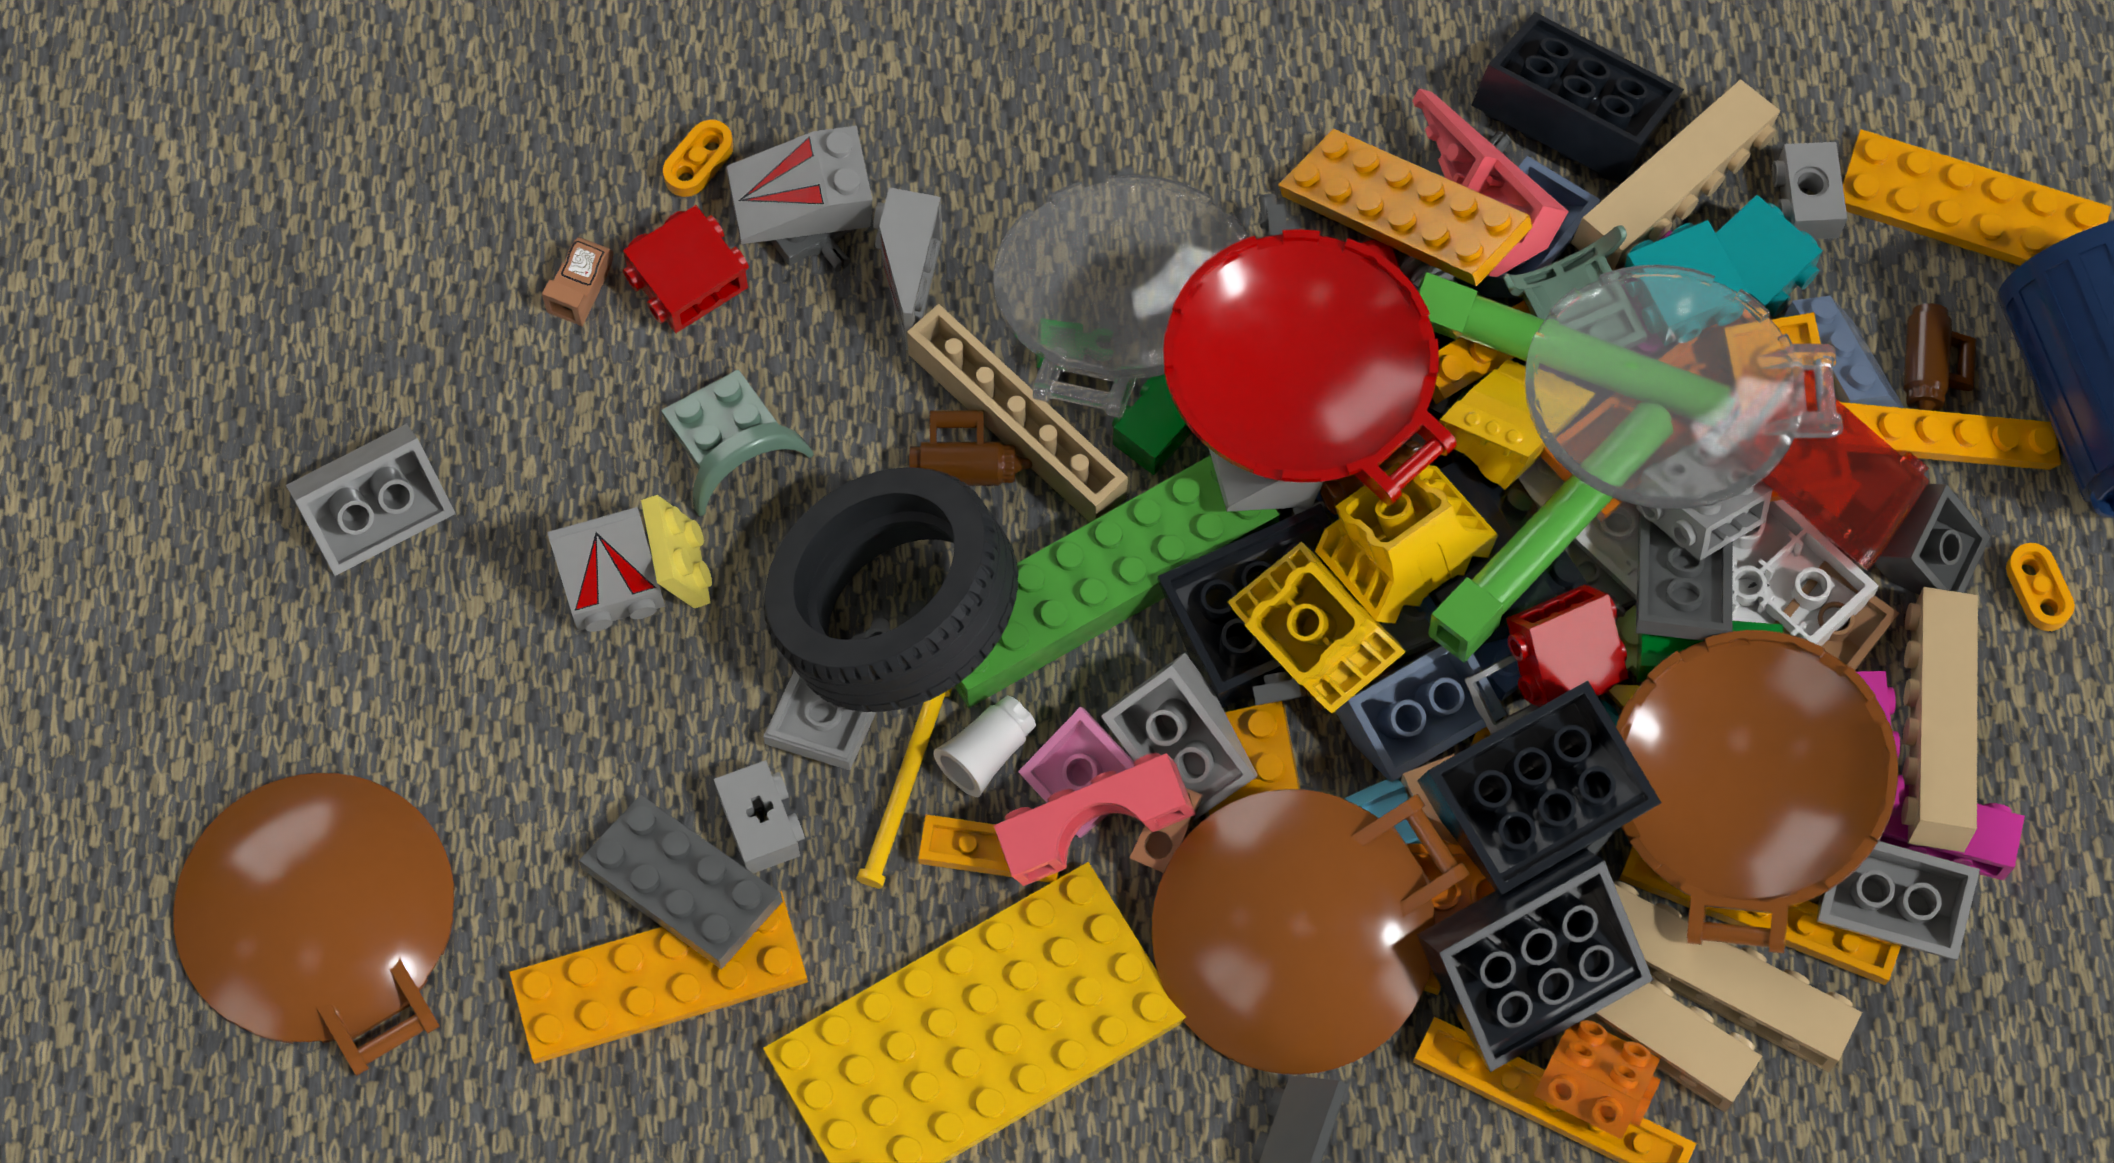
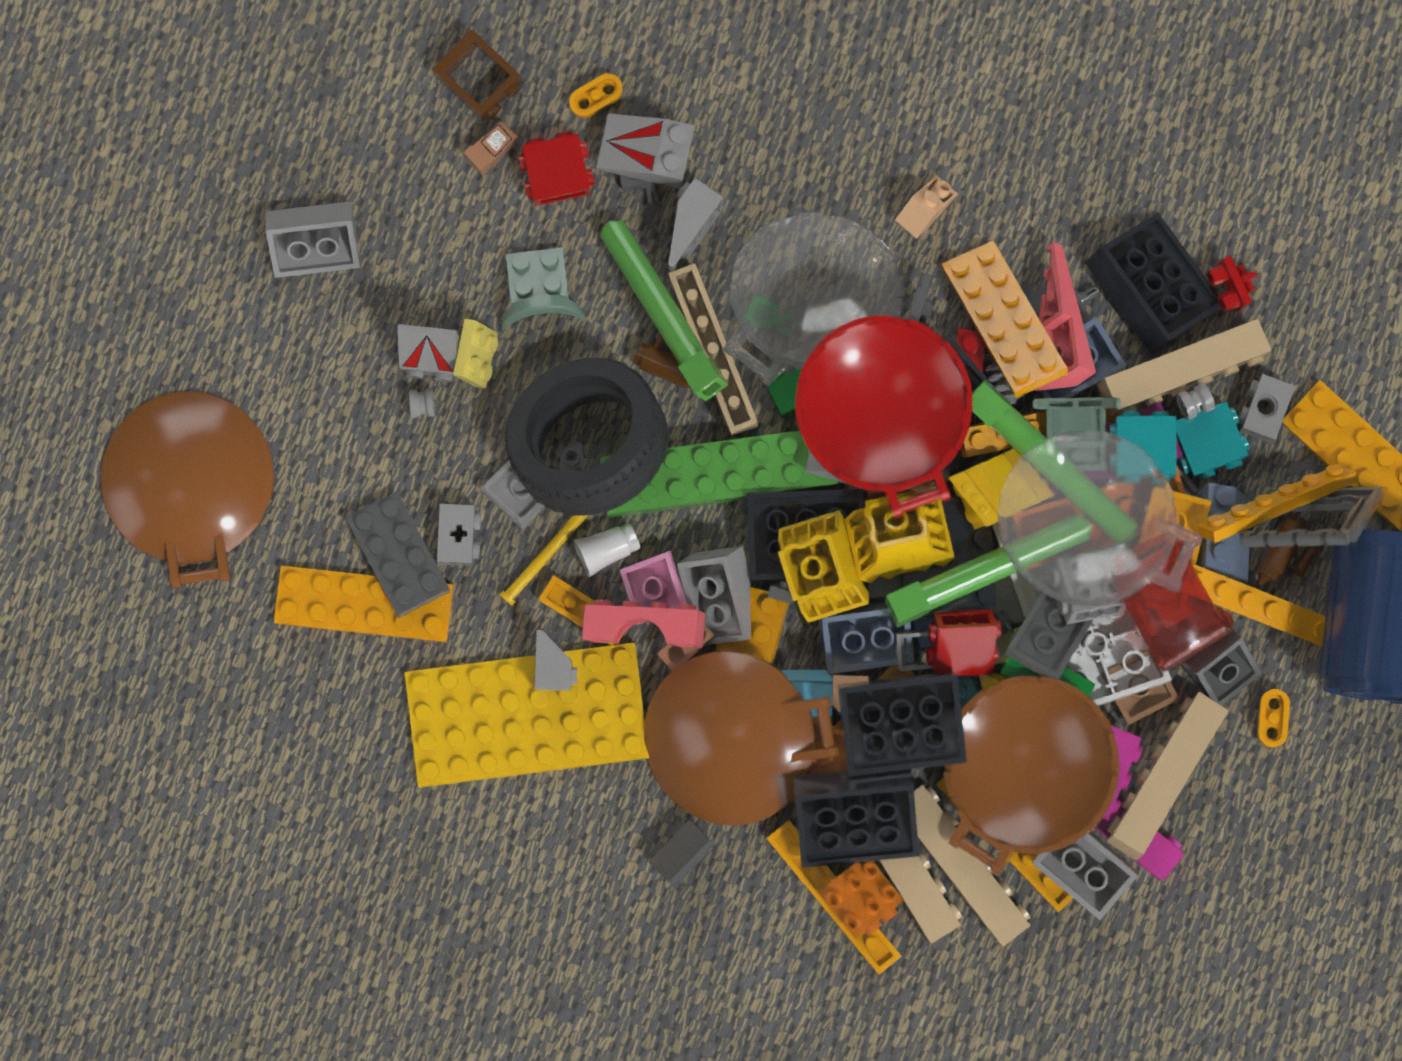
camera: 30 degrees right, 15 degrees up
(481, 175) = (457, 56): none -> reddish brown window
(626, 655) = (422, 402): none -> light grey wheel
(984, 937) = (553, 666): none -> light grey slope
(997, 419) = (694, 362): none -> bright green brick
(1221, 120) = (926, 206): none -> light nougat slope
(1684, 53) = (1236, 281): none -> red hips
(1721, 202) = (1195, 401): none -> light grey wheel
(1907, 279) = (1276, 503): none -> light orange plate
(1936, 277) = (1359, 500): none -> dark grey hinge

